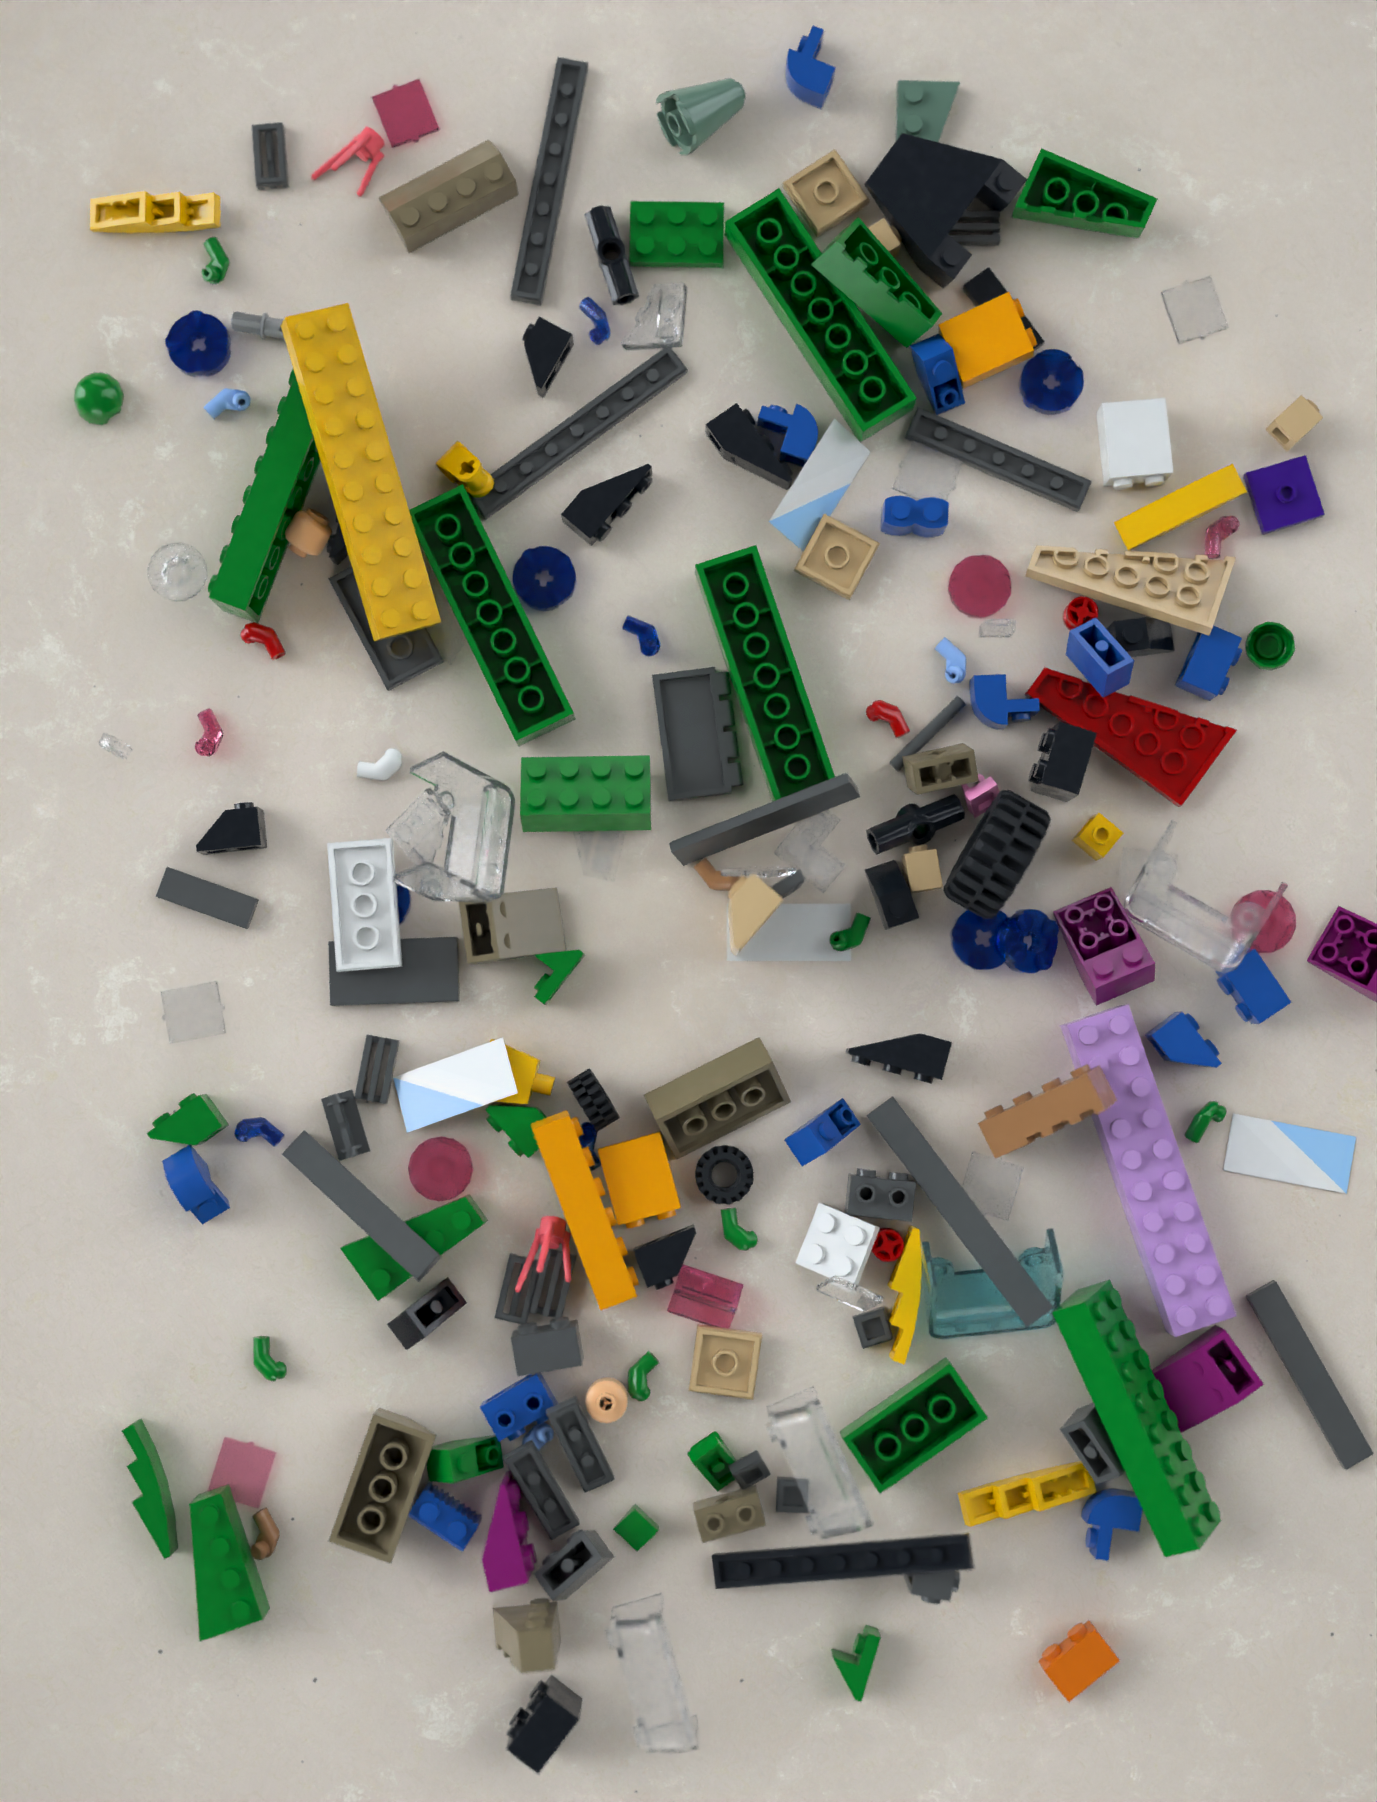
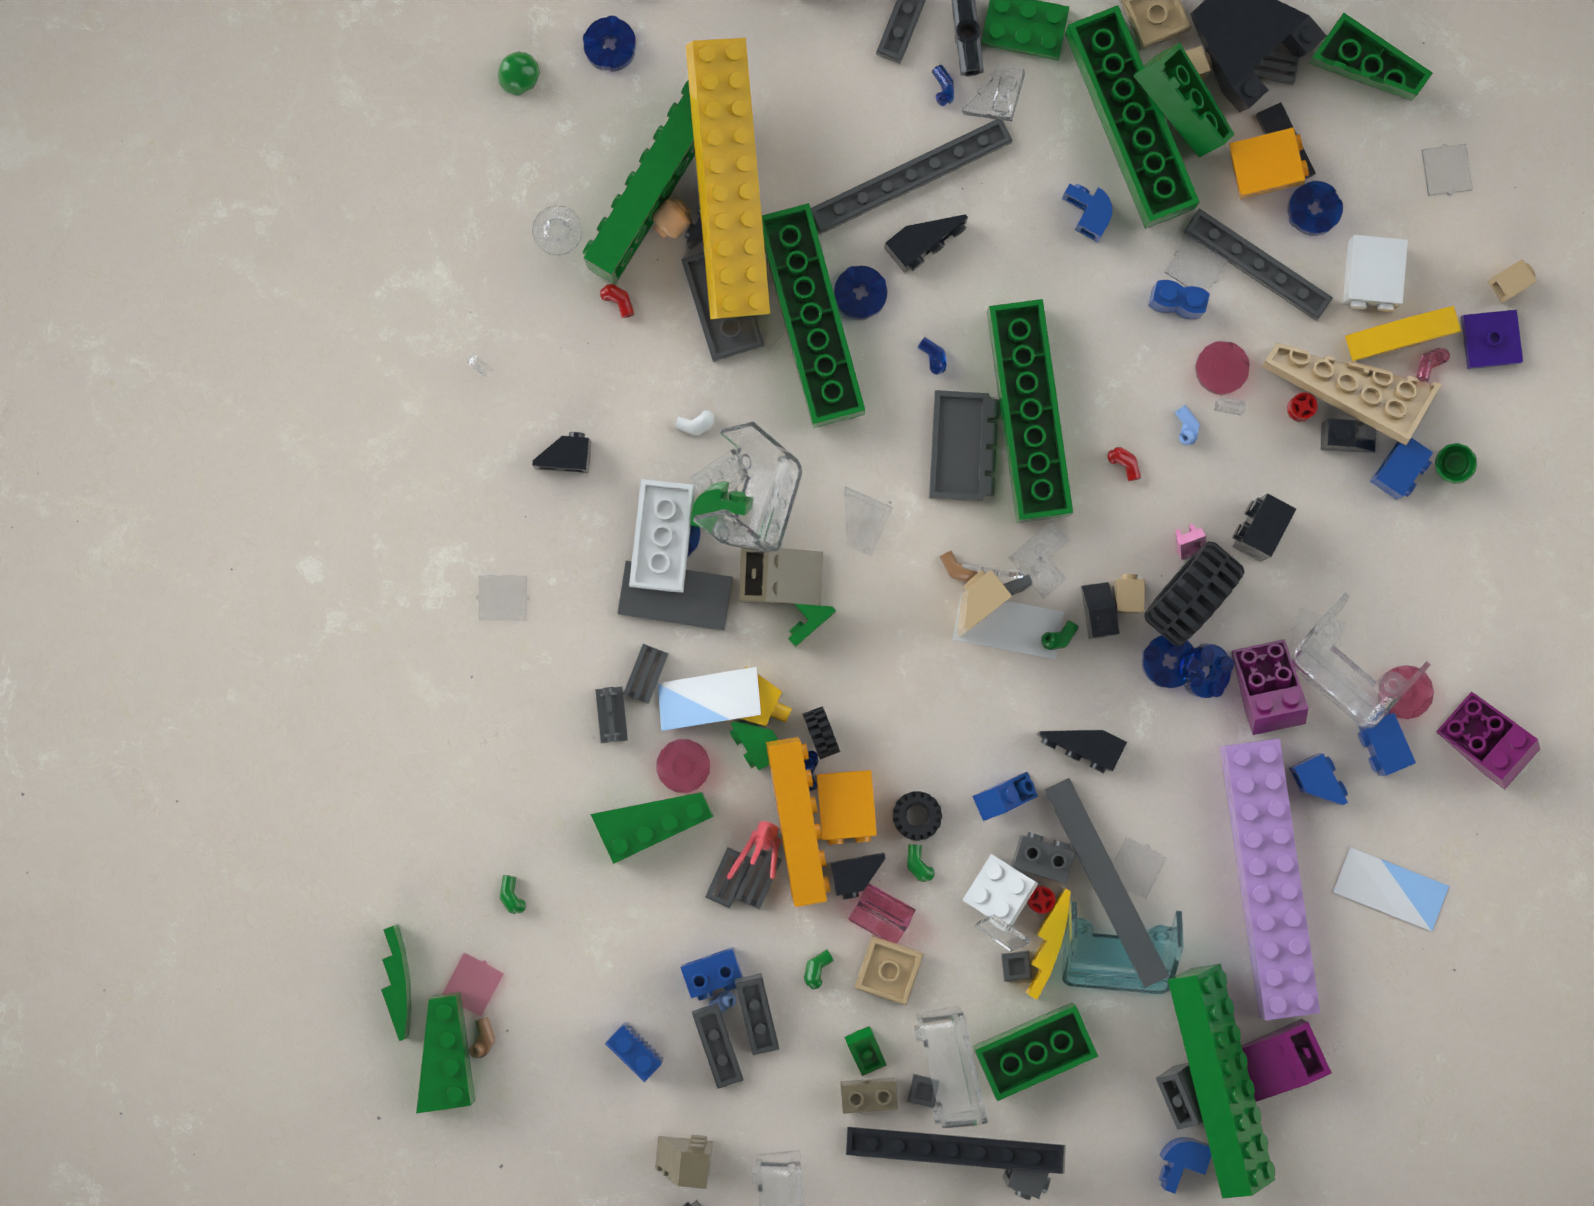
camera: 15 degrees right, 0 degrees up
(192, 1124) = (485, 689): green slope -> none
(193, 1186) = (479, 740): blue brick -> none
(207, 898) = (532, 505): dark grey tile -> none
(212, 735) = (561, 370): clear pink arm -> none
(228, 399) = (625, 94): light blue arm -> none
(257, 324) = (664, 37): light grey axle -> none
(258, 1127) = (539, 703): clear blue arm -> none
(362, 1206) = (614, 782): dark grey tile -> none
(383, 1485) = (589, 1016): dark tan slope -> none
(421, 848) = (718, 498): none -> green brick
(427, 1313) = (650, 883): black slope -> none
(464, 468) = (812, 190): yellow piece -> none
(464, 1459) = (658, 1007): green slope -> none
(507, 1555) = (680, 1091): magenta slope -> none
(546, 352) = (897, 104): black slope -> none
(547, 1346) = (744, 928): dark grey brick -> none
(573, 1565) = (733, 1111): dark grey brick -> none
(585, 793) = (862, 478): green brick -> none
(611, 1389) = (780, 973): light nougat head -> none
(636, 1528) = (789, 1092): green slope -> none
(717, 1098) = (924, 751): dark tan slope -> none
(742, 445) = (1046, 212): black slope -> none
(749, 1470) = (892, 1062): dark grey tile -> none
(765, 819) = (1007, 528): dark grey tile -> none
(819, 484) = (1104, 259): sticker -> none
(836, 557) = (1107, 321): tan plate -> none
(915, 824) = (1131, 555): black piece -> none
(928, 732) = (1155, 482): dark grey bar -> none
(938, 373) = (1221, 183): blue slope -> none
(940, 768) = (1160, 513): dark tan brick -> none
(991, 705) = (1213, 468): blue brick -> none
(1025, 1493) = (1117, 1126): yellow slope -> none
(1047, 1111) = (1195, 814): medium nougat wedge -> none
(1097, 836) = (1280, 595): yellow brick -> none
(1099, 657) = (1311, 446): blue brick -> none
(1144, 737) = (1335, 519): red wing -> none
(1203, 1118) = (1323, 846): green arm -> none
(1309, 1374) = (1371, 1075): dark grey tile -> none

